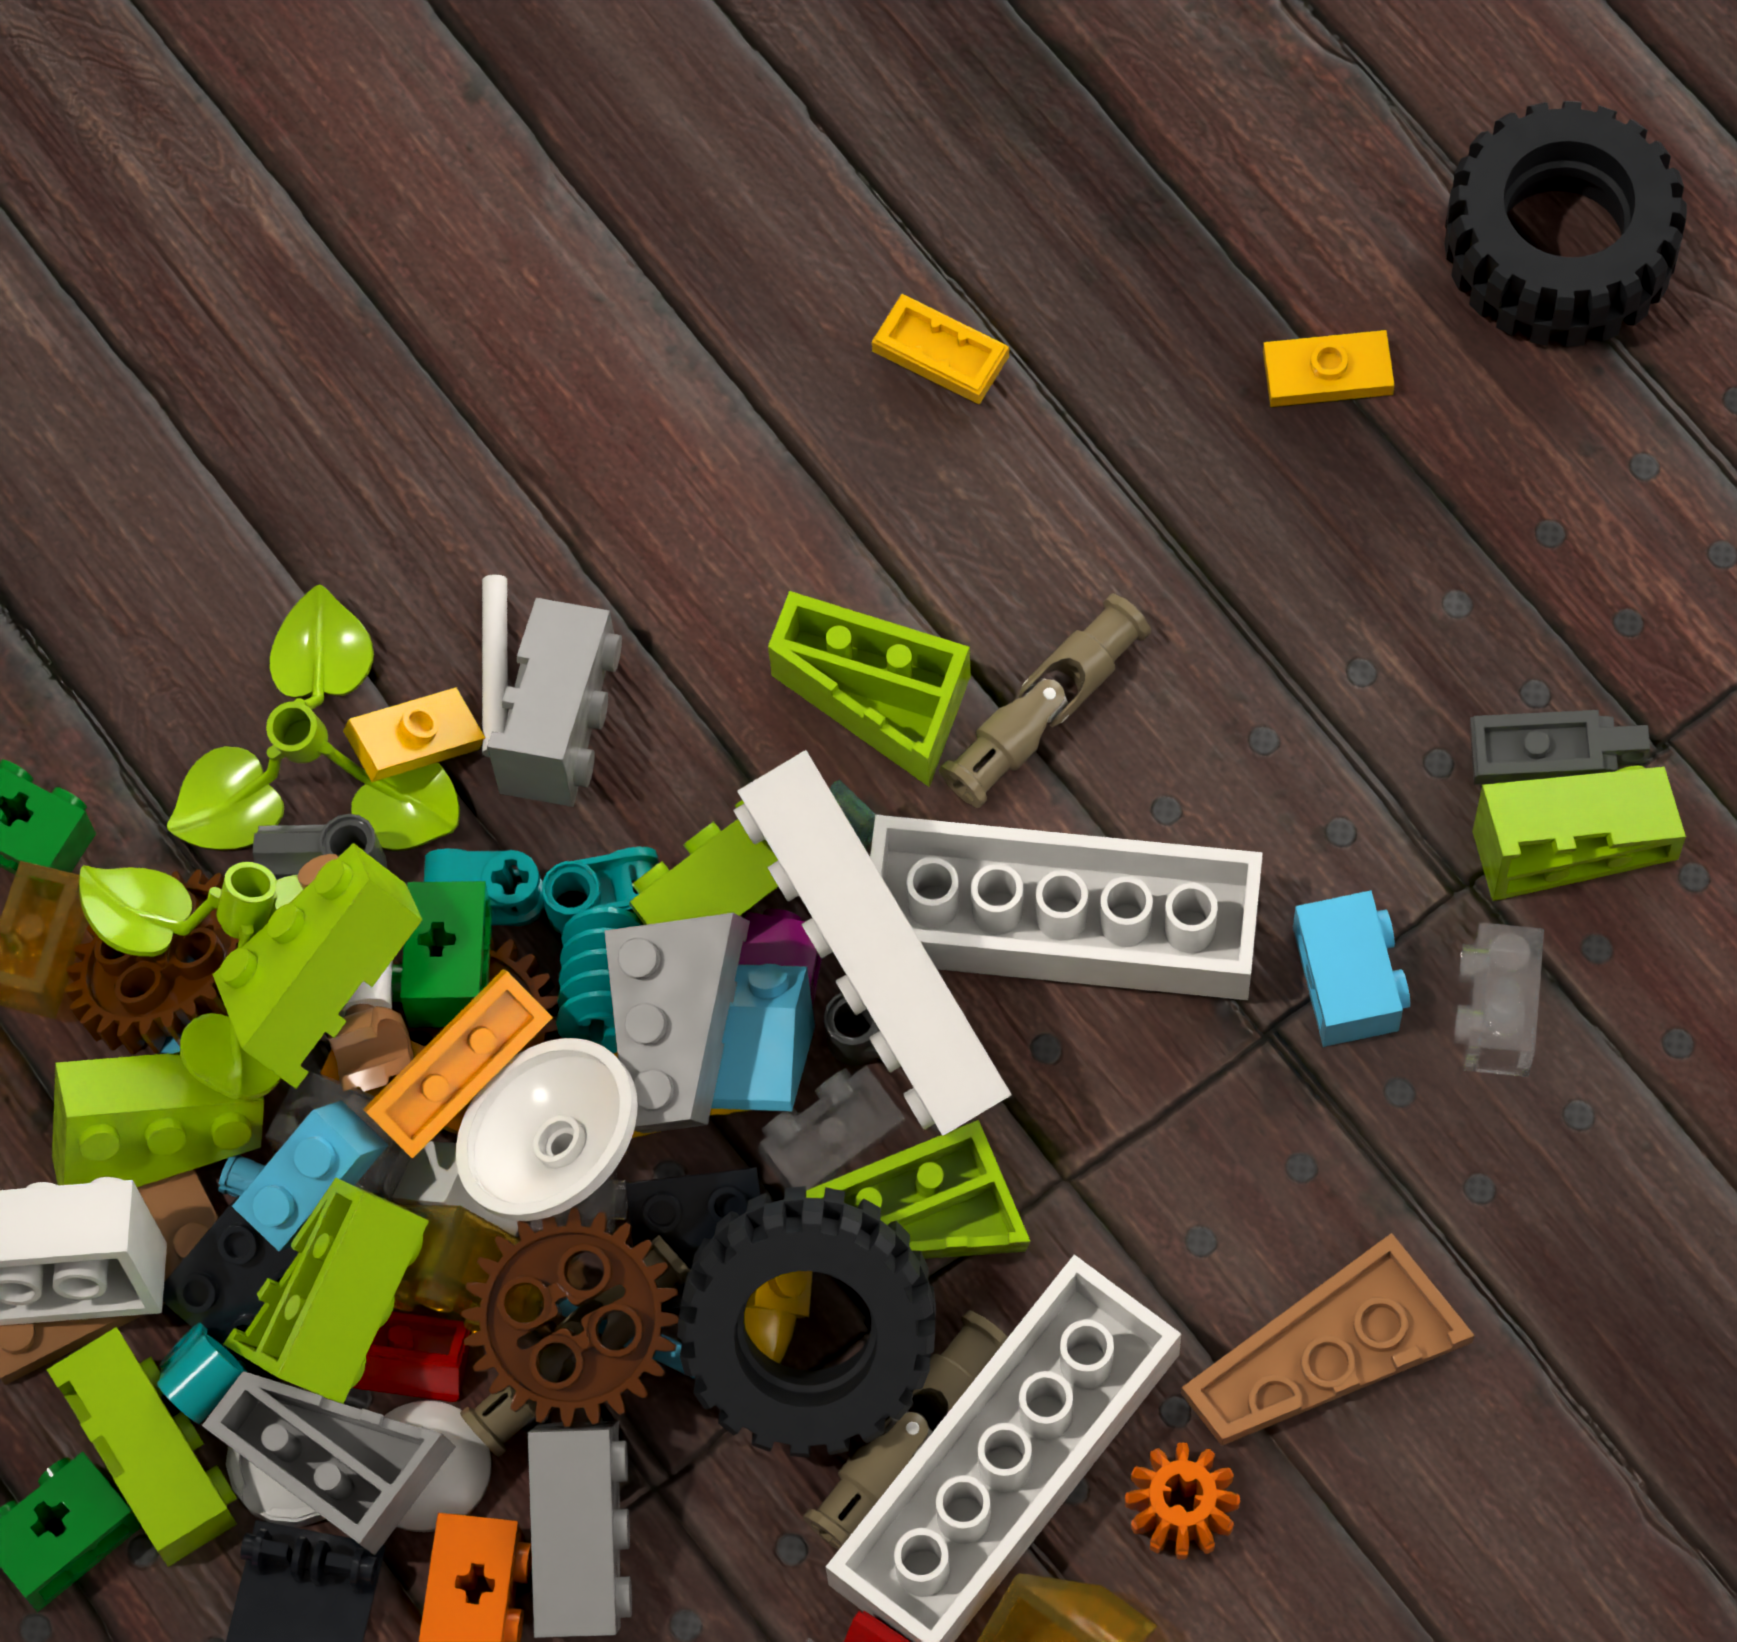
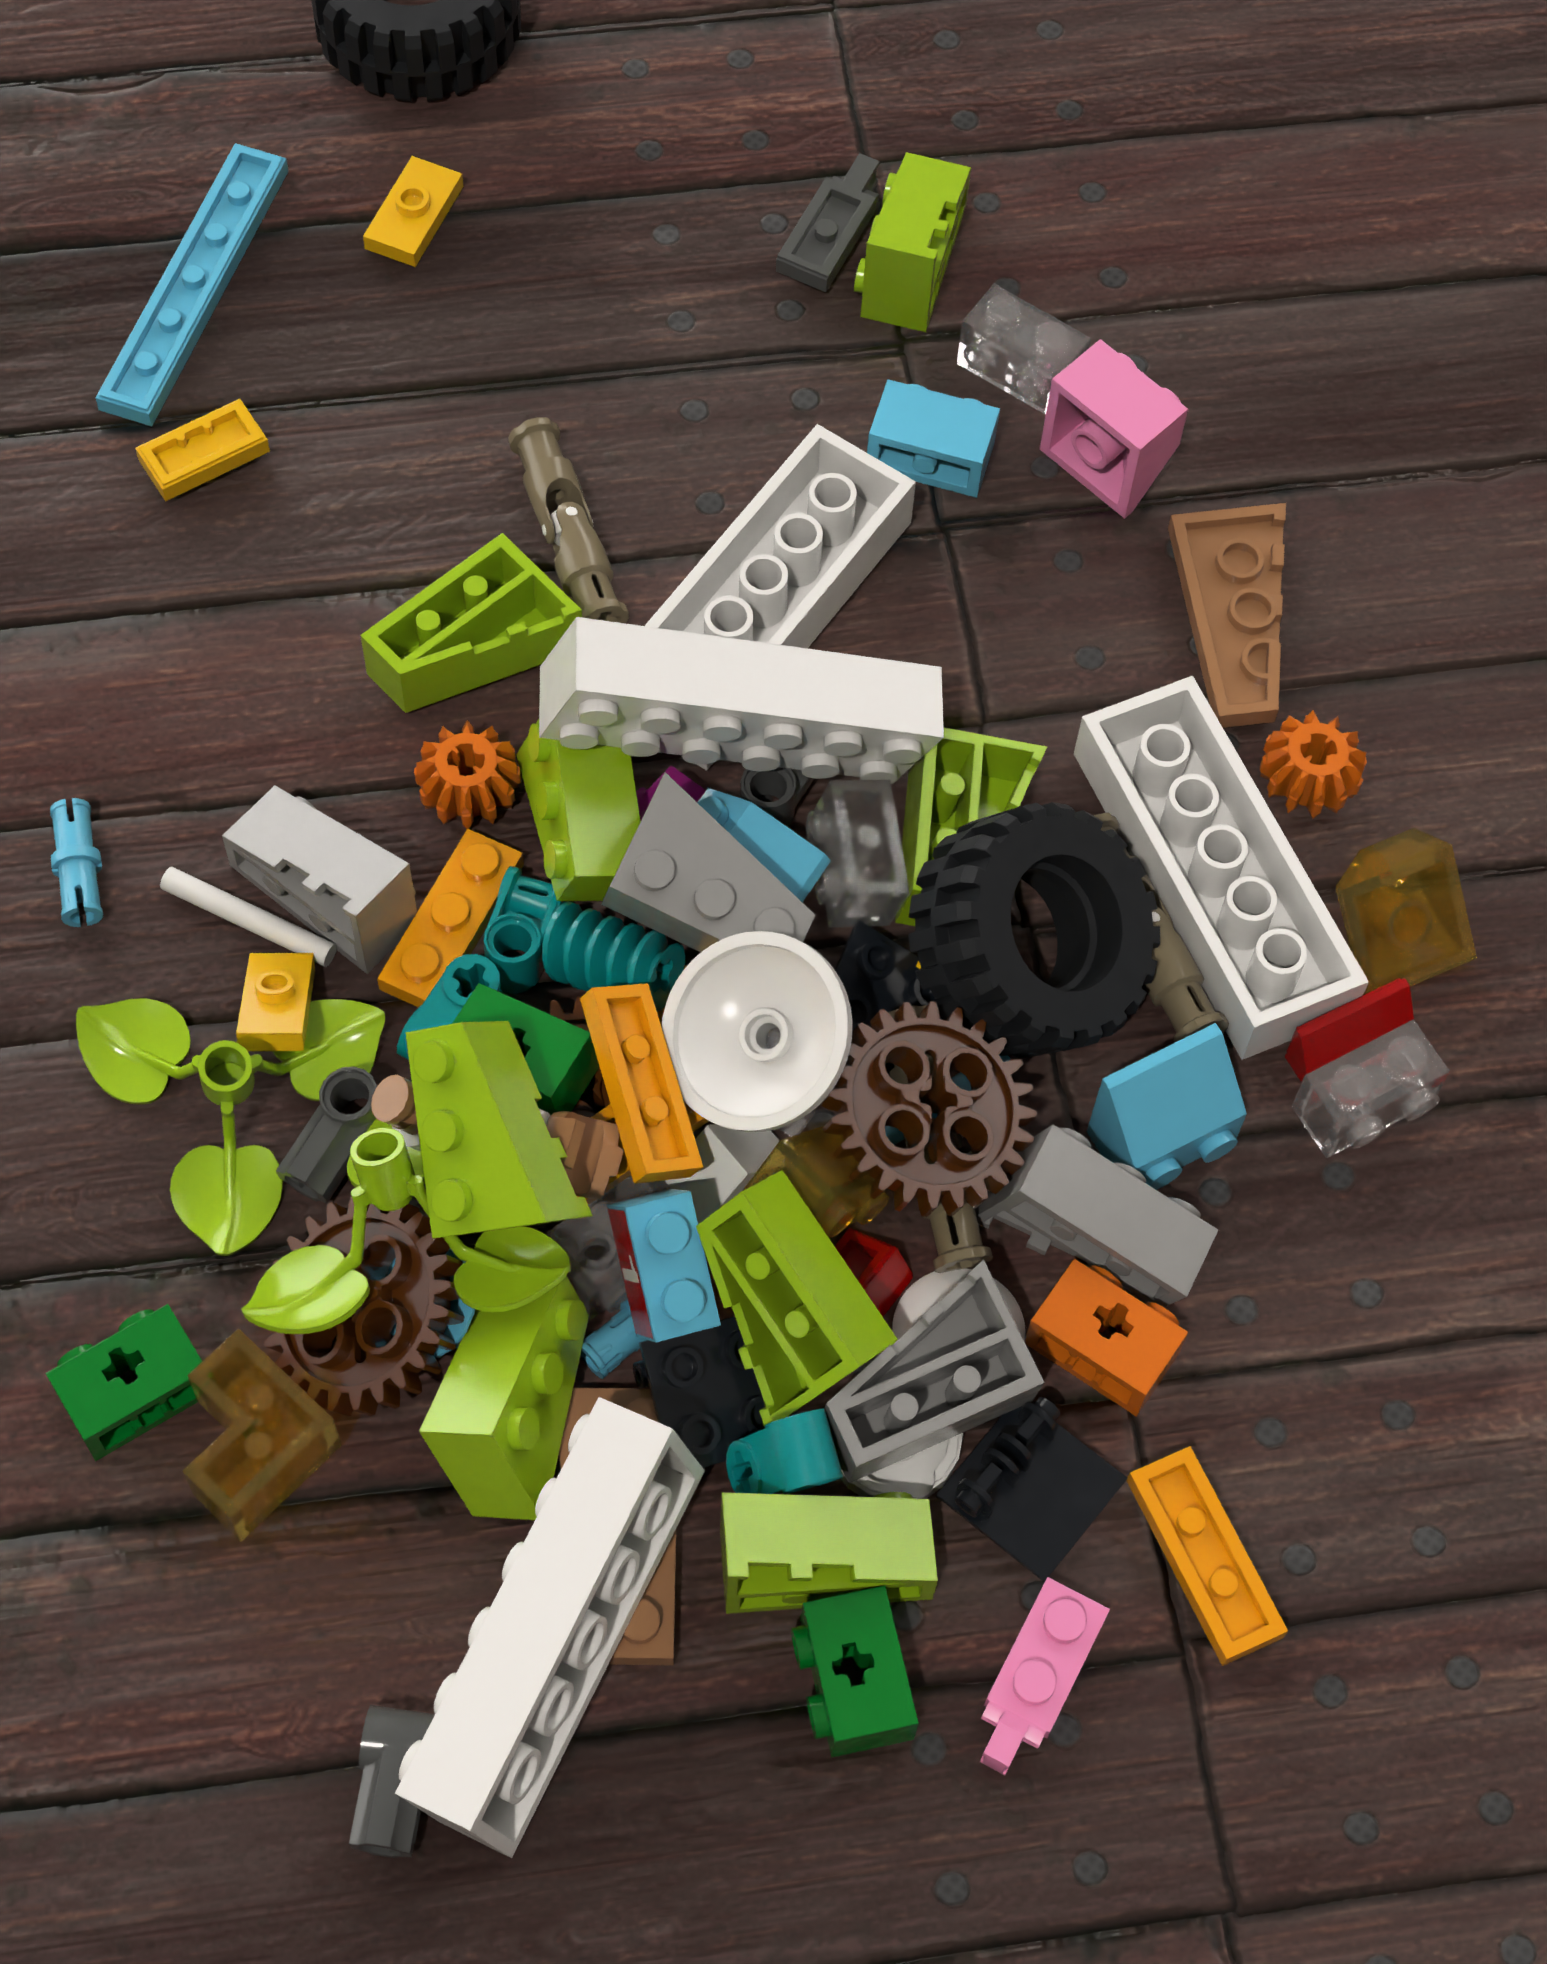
camera: 70 degrees left, 5 degrees down
(465, 499) = (76, 862): none -> medium azure pin
(586, 827) = (449, 917): none -> light orange plate
(713, 1538) = (1170, 1108): none -> medium azure slope
(719, 741) = (489, 772): none -> orange gear
(1126, 232) = (192, 285): none -> medium azure tile
(1447, 1114) = (1111, 426): none -> bright pink slope

